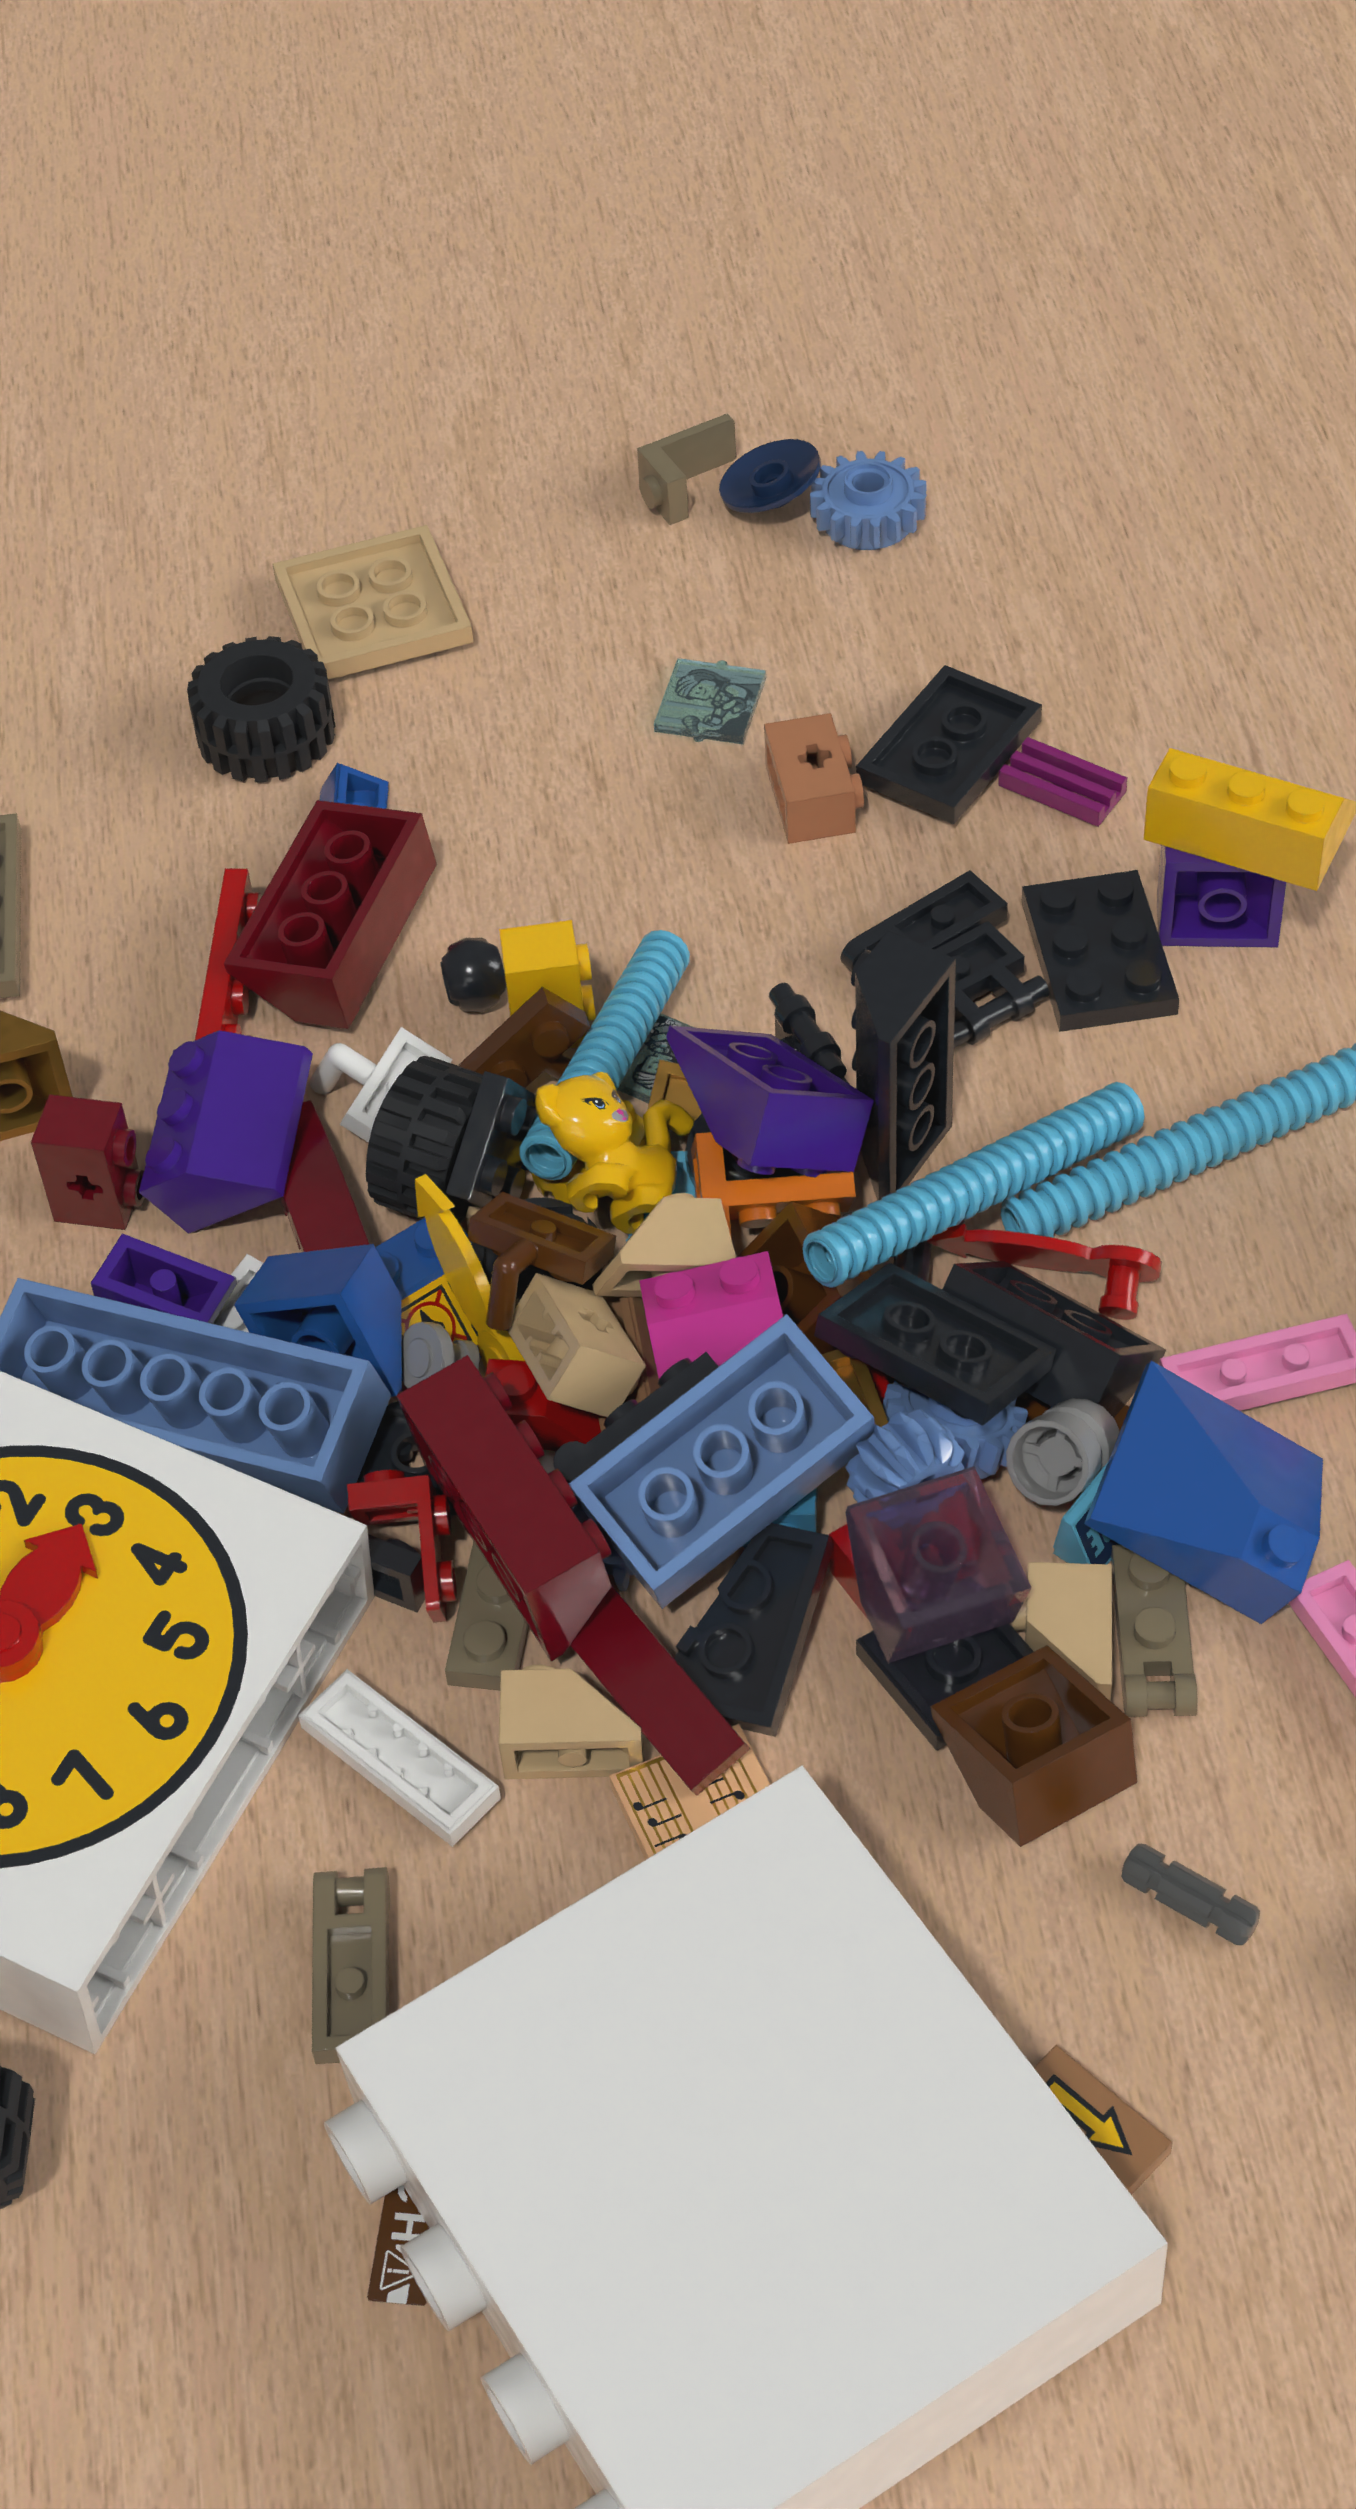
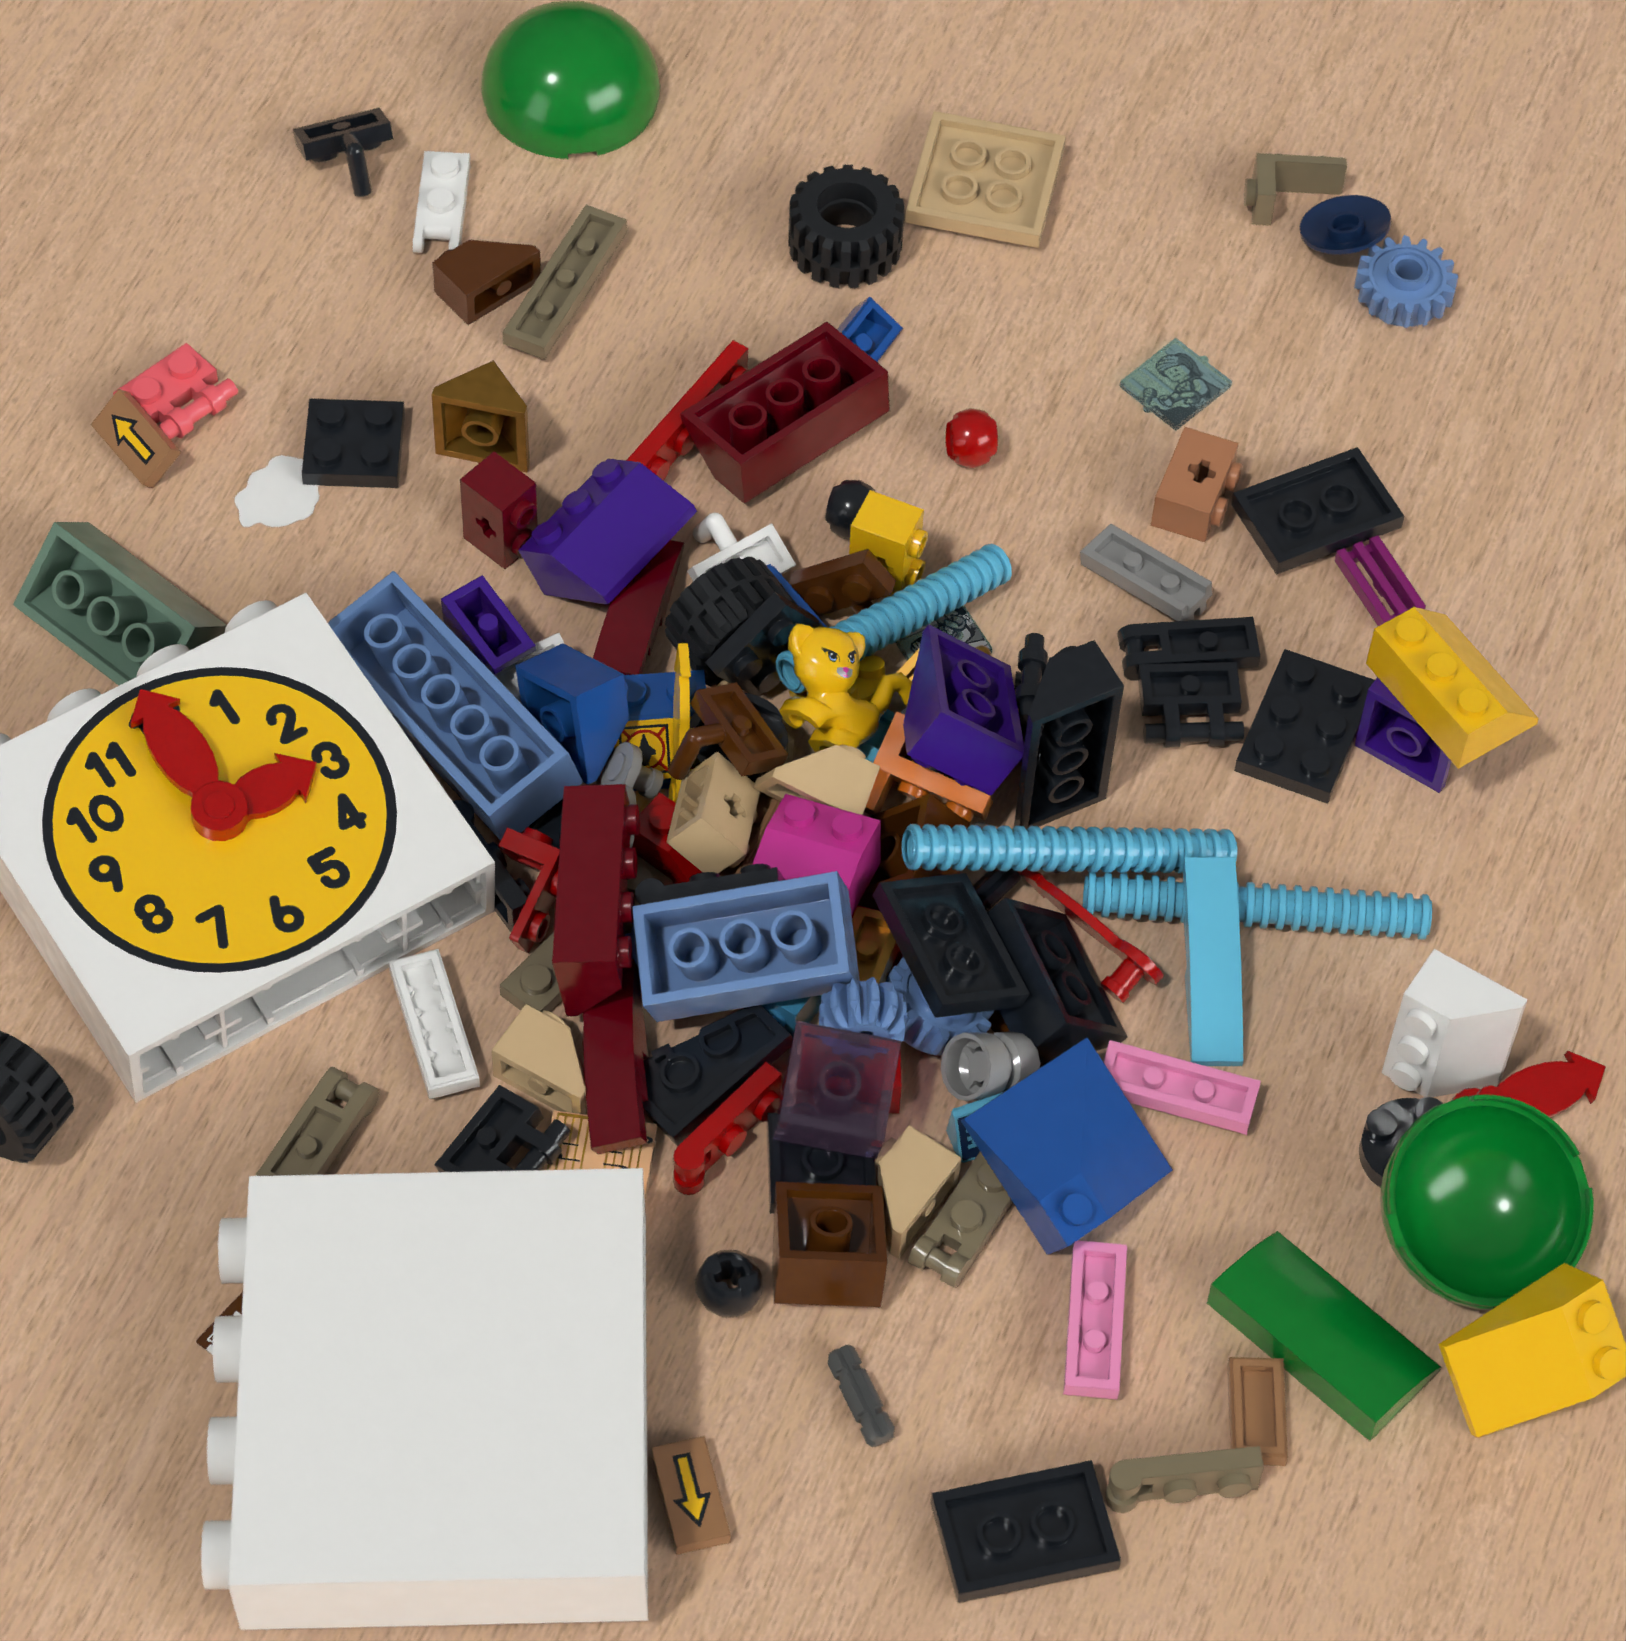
camera: 25 degrees right, 5 degrees up
(546, 845) = (971, 438): none -> red piece
(566, 1841) = (497, 1134): none -> black plate
(822, 1685) = (726, 1128): none -> red plate
(827, 885) = (1147, 574): none -> light grey hinge
(950, 1832) = (741, 1271): none -> black piece
(1204, 1220) = (1213, 961): none -> medium azure slope

